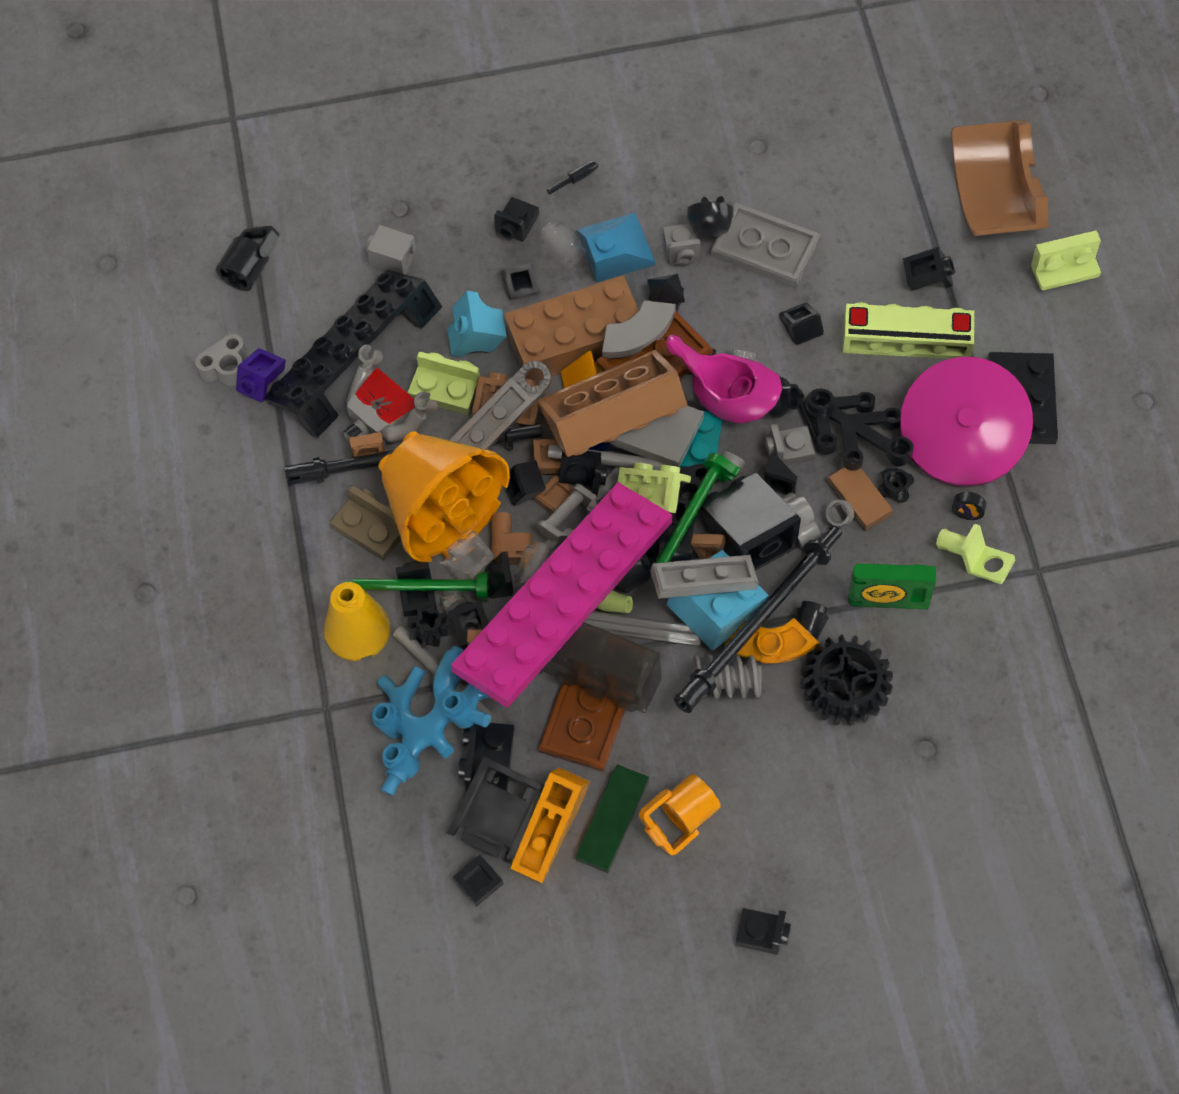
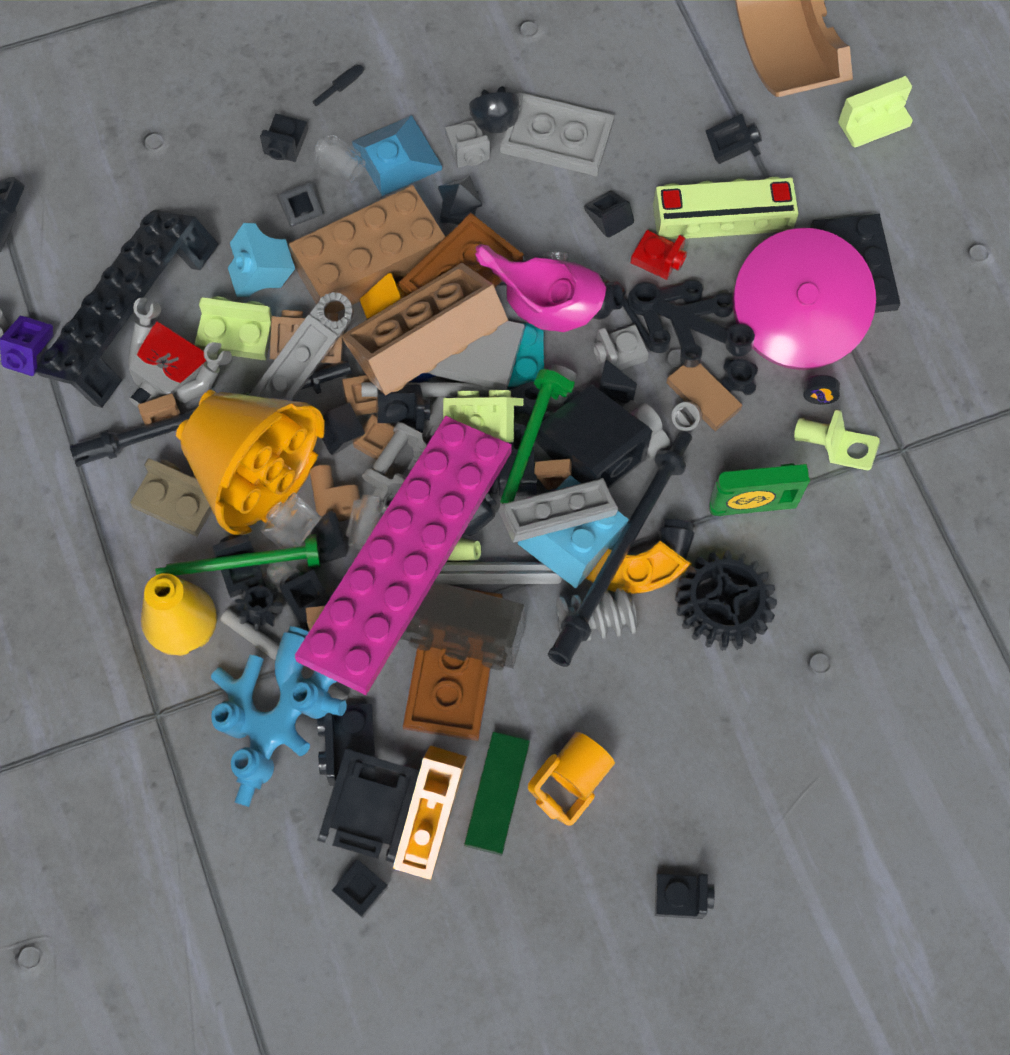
camera: 15 degrees left, 5 degrees up
(391, 250) = (152, 188): light grey brick -> none
(639, 331) = (440, 245): light grey tile -> none
(841, 365) = (659, 254): none -> red bracket

